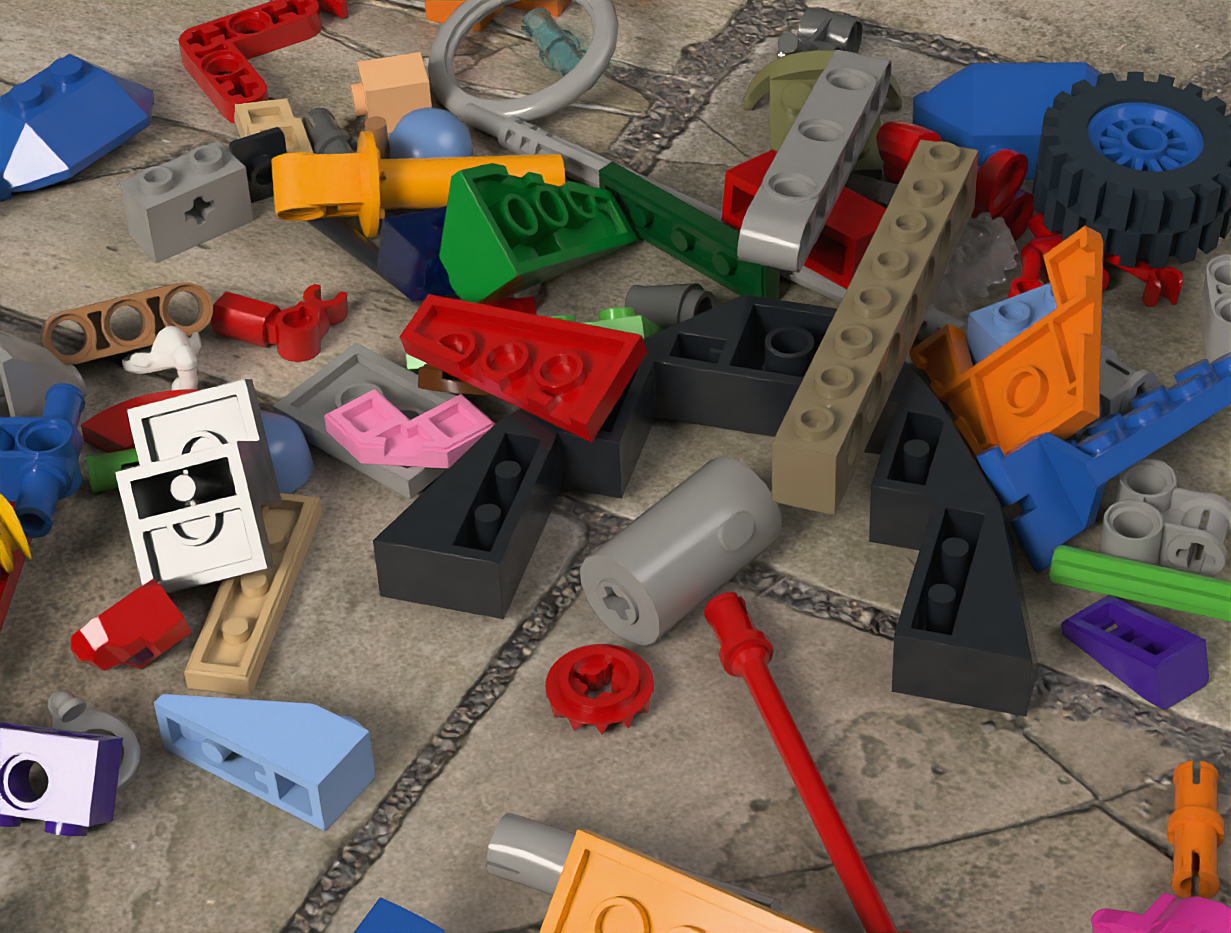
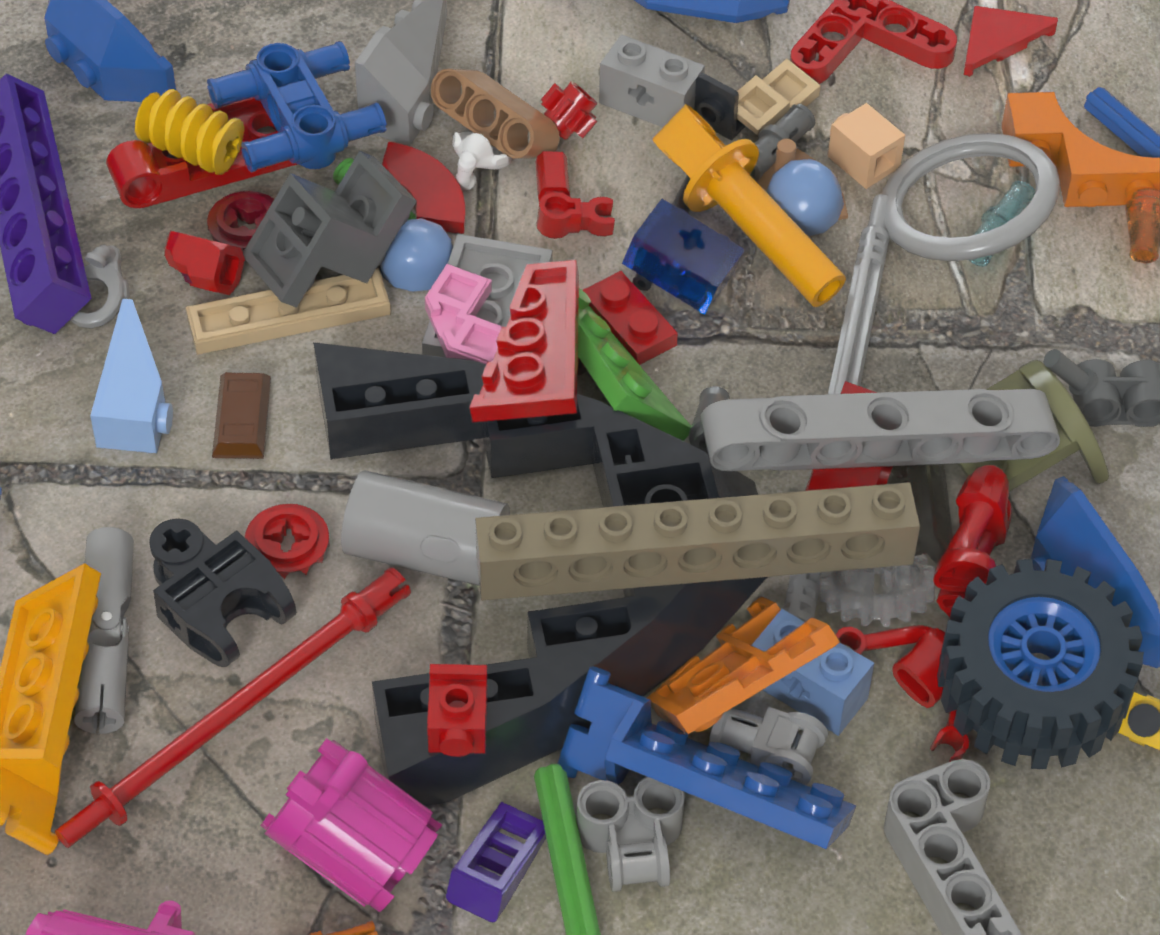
camera: 60 degrees right, 10 degrees up
(71, 574) = (247, 206): none -> dark red gear
(169, 263) = (570, 109): none -> red gear
(381, 678) = (241, 416): none -> reddish brown tile
(519, 231) = (700, 283): green wedge -> none
(638, 768) = (211, 585): none -> black piece
(687, 234) = (814, 374): dark green tile -> none
(993, 562) = (457, 709): none -> red brick
(1072, 714) = (353, 826): none -> dark pink container

